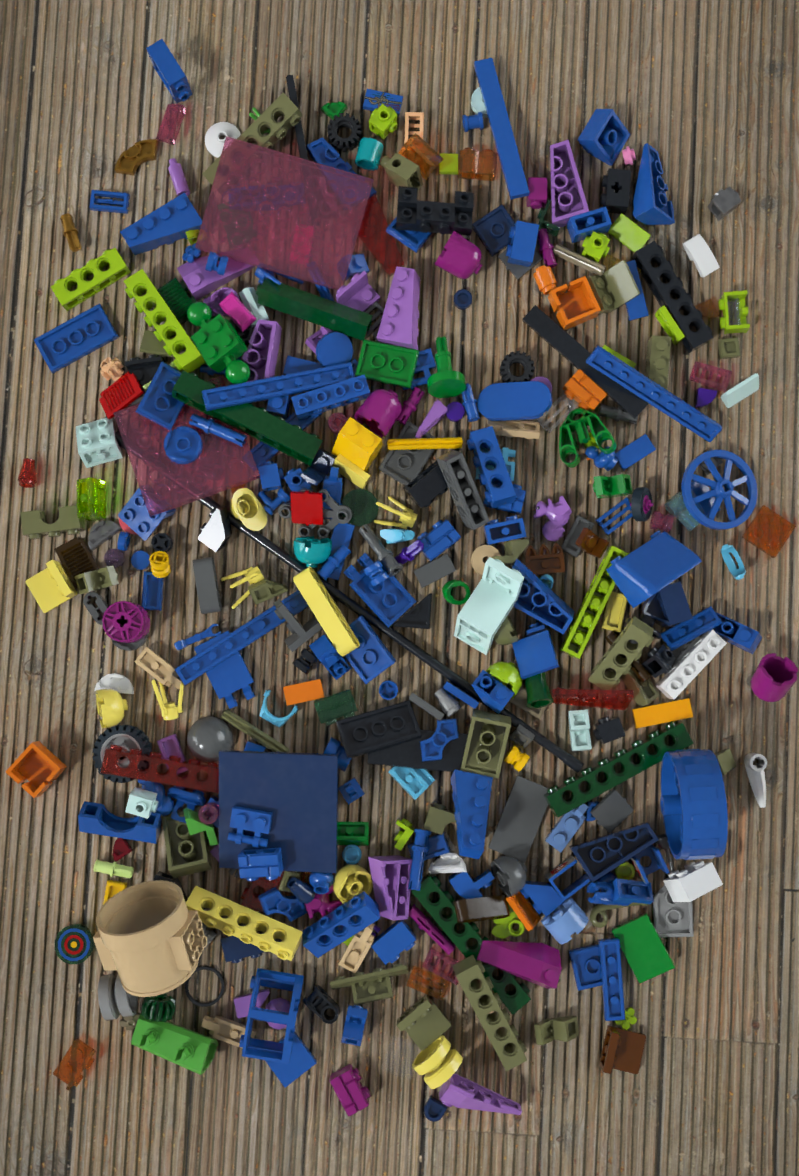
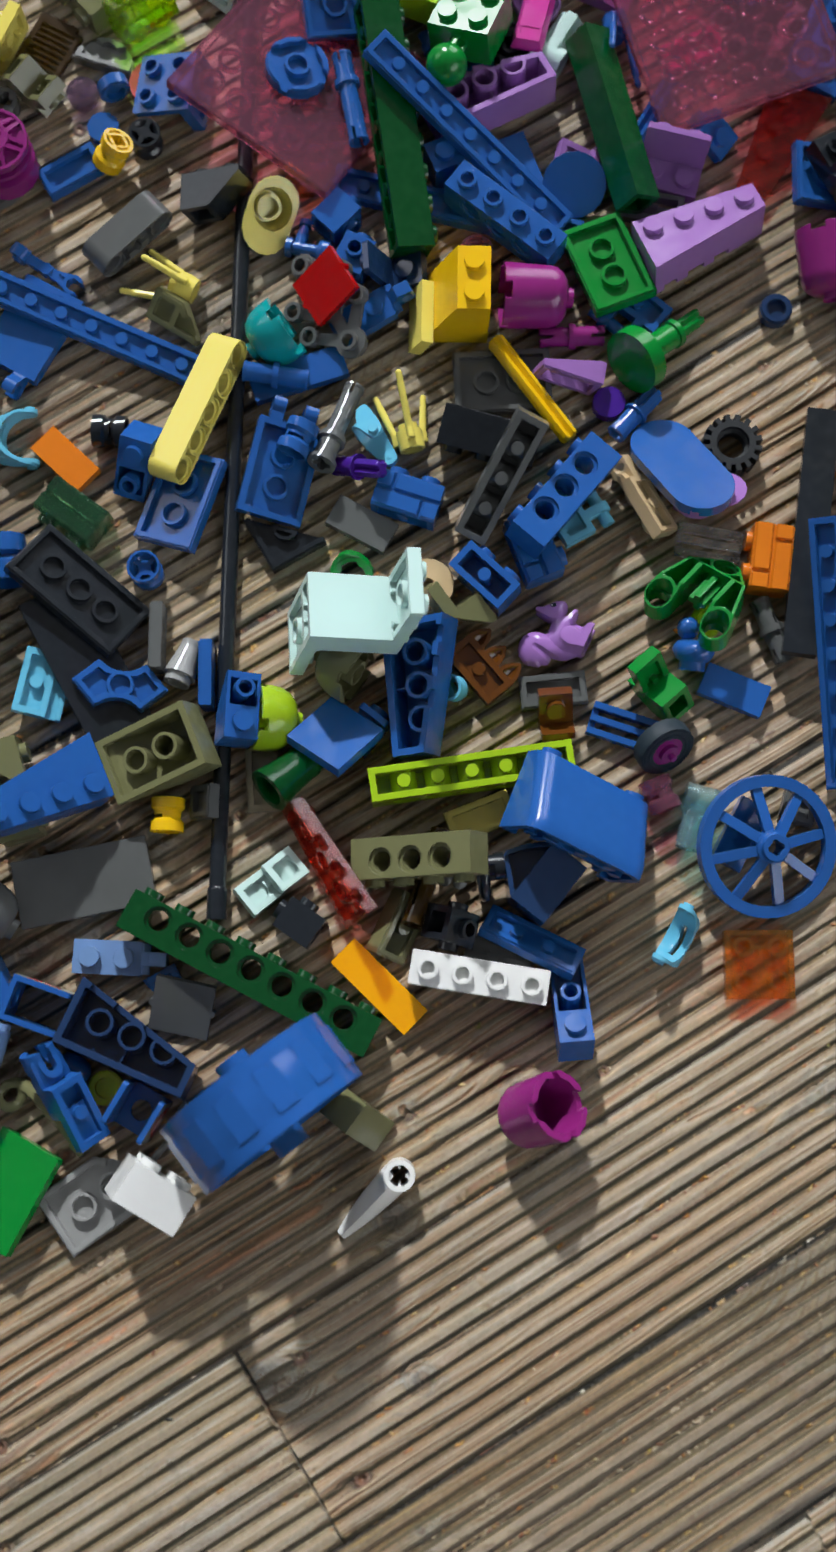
camera: 55 degrees right, 5 degrees down
(300, 633) = (148, 378): dark grey bracket -> none
(362, 506) = (378, 365): clear green tile -> none

